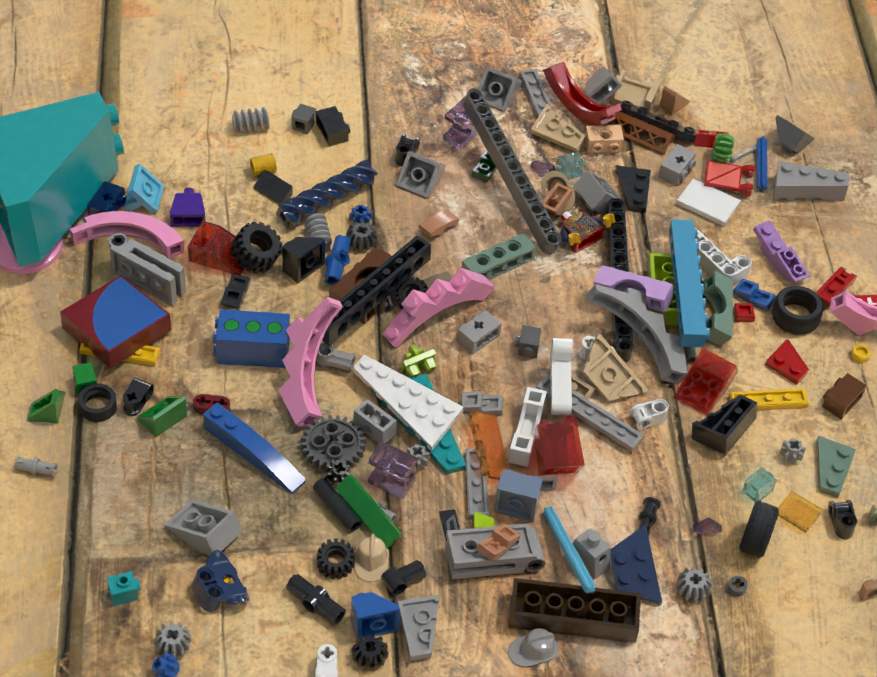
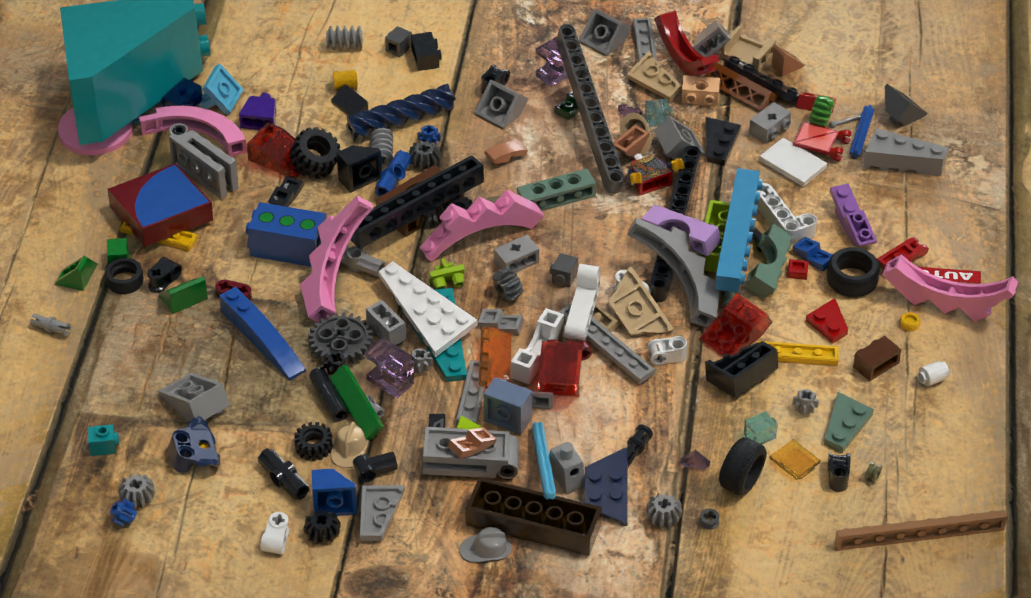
camera: 15 degrees right, 5 degrees down
(480, 364) = (507, 284): none -> dark grey gear

